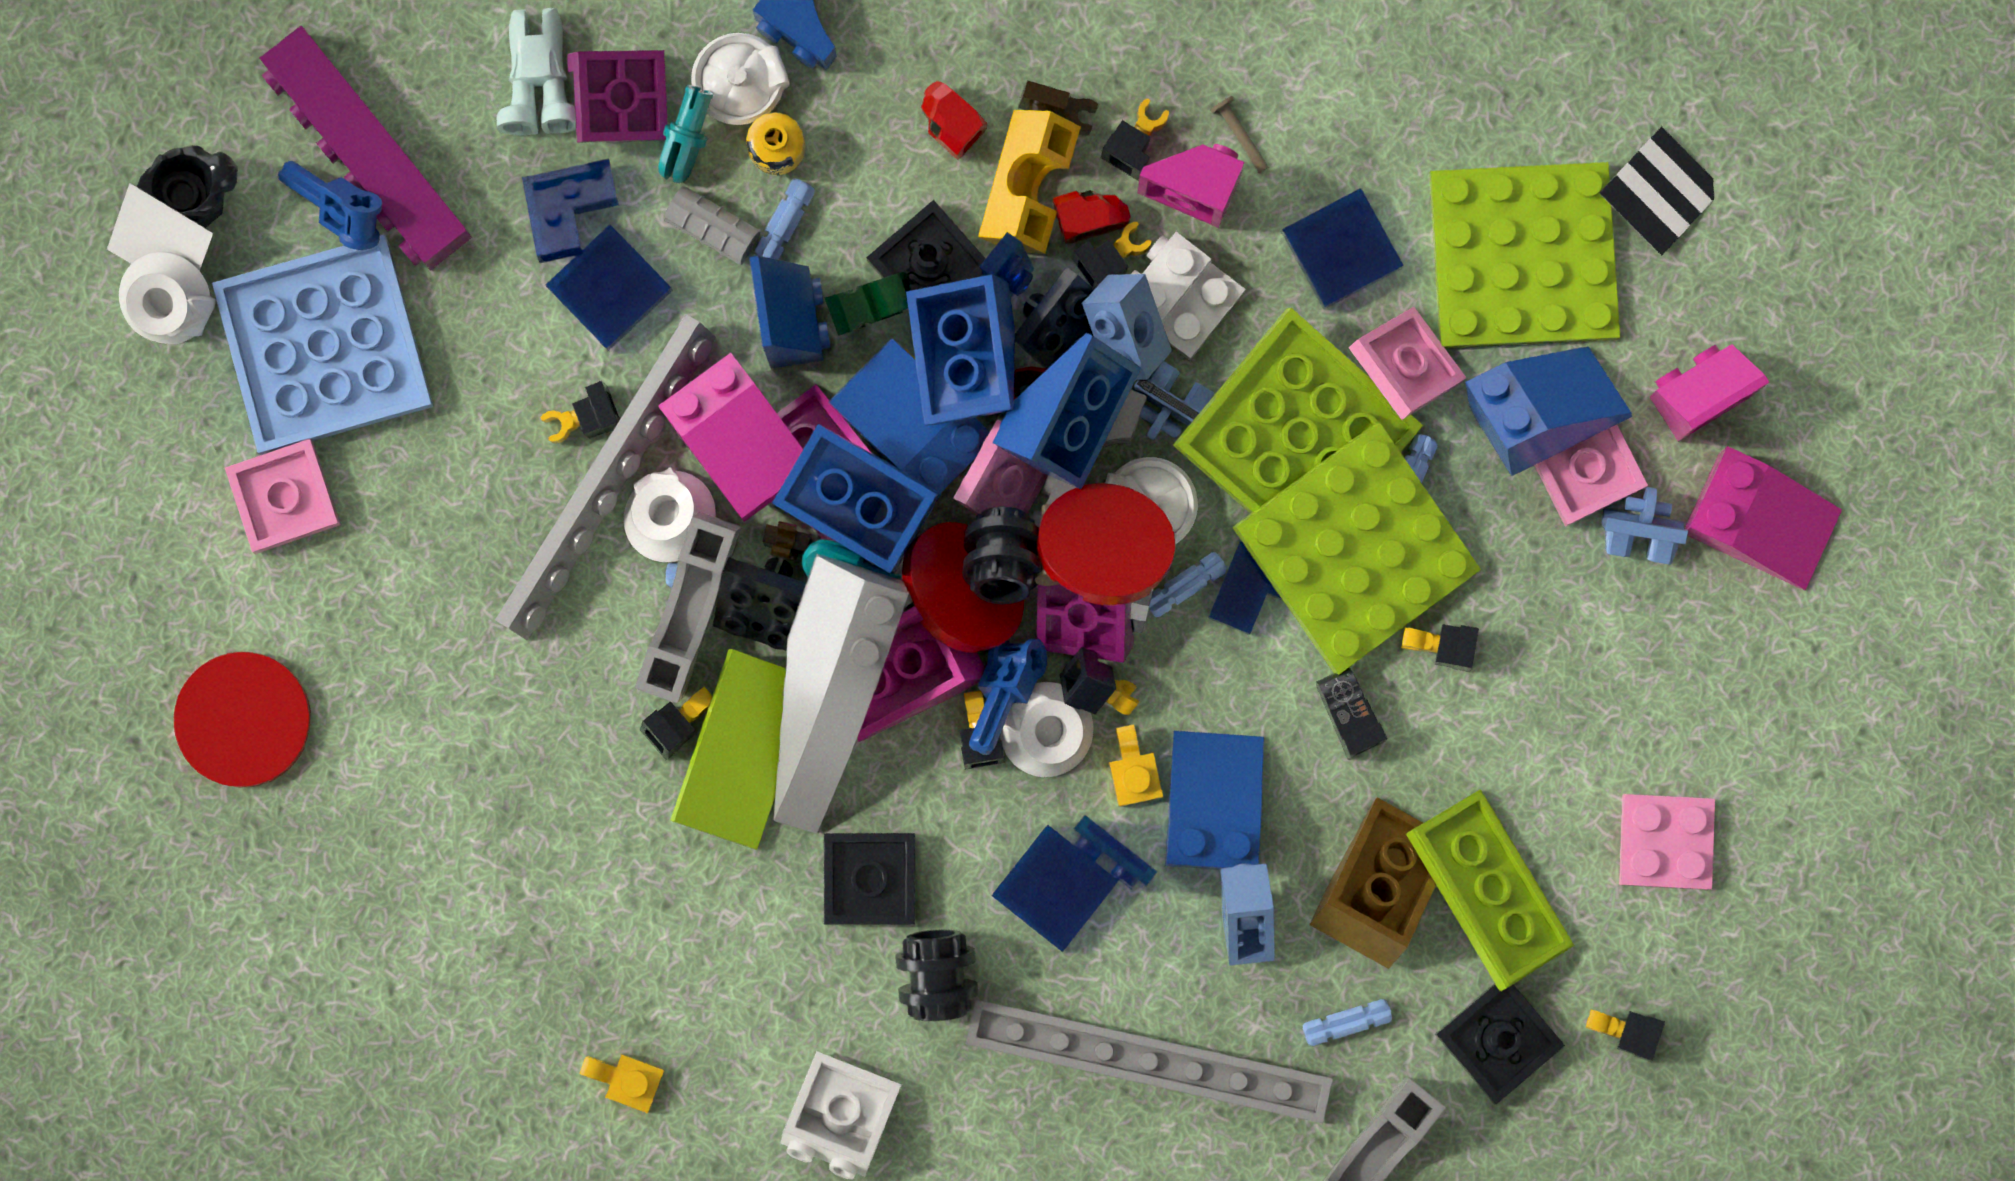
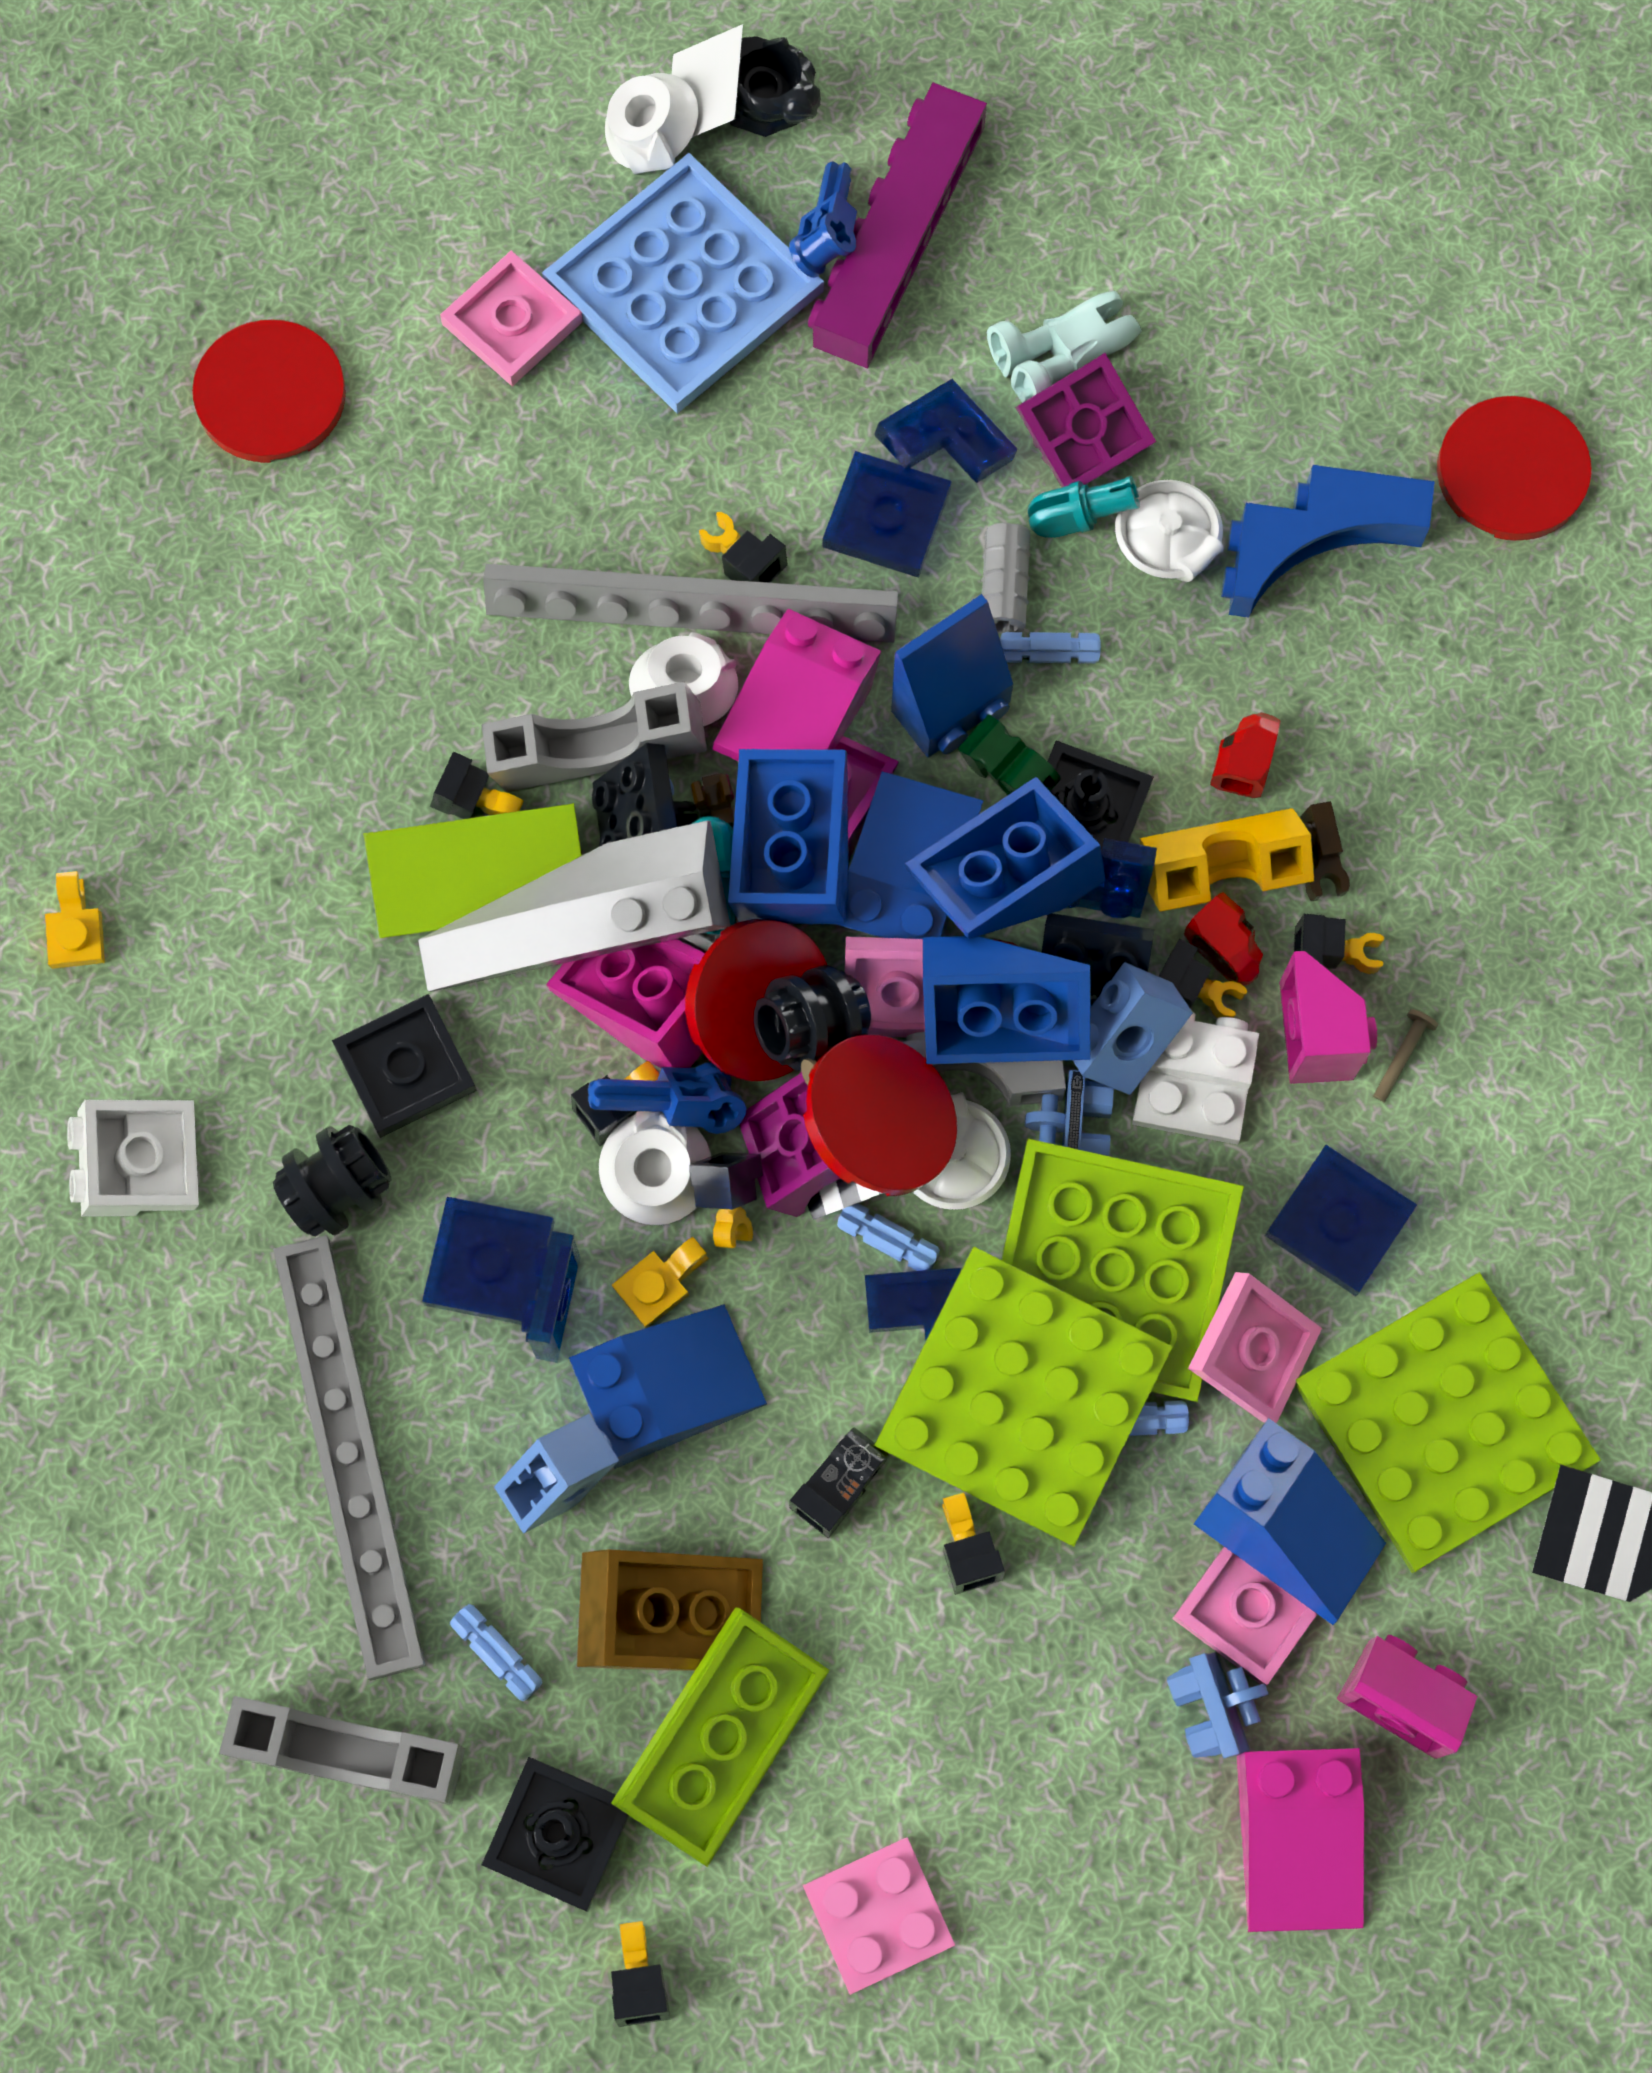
camera: 60 degrees right, 10 degrees down
(779, 158) = (1122, 595): yellow head -> none

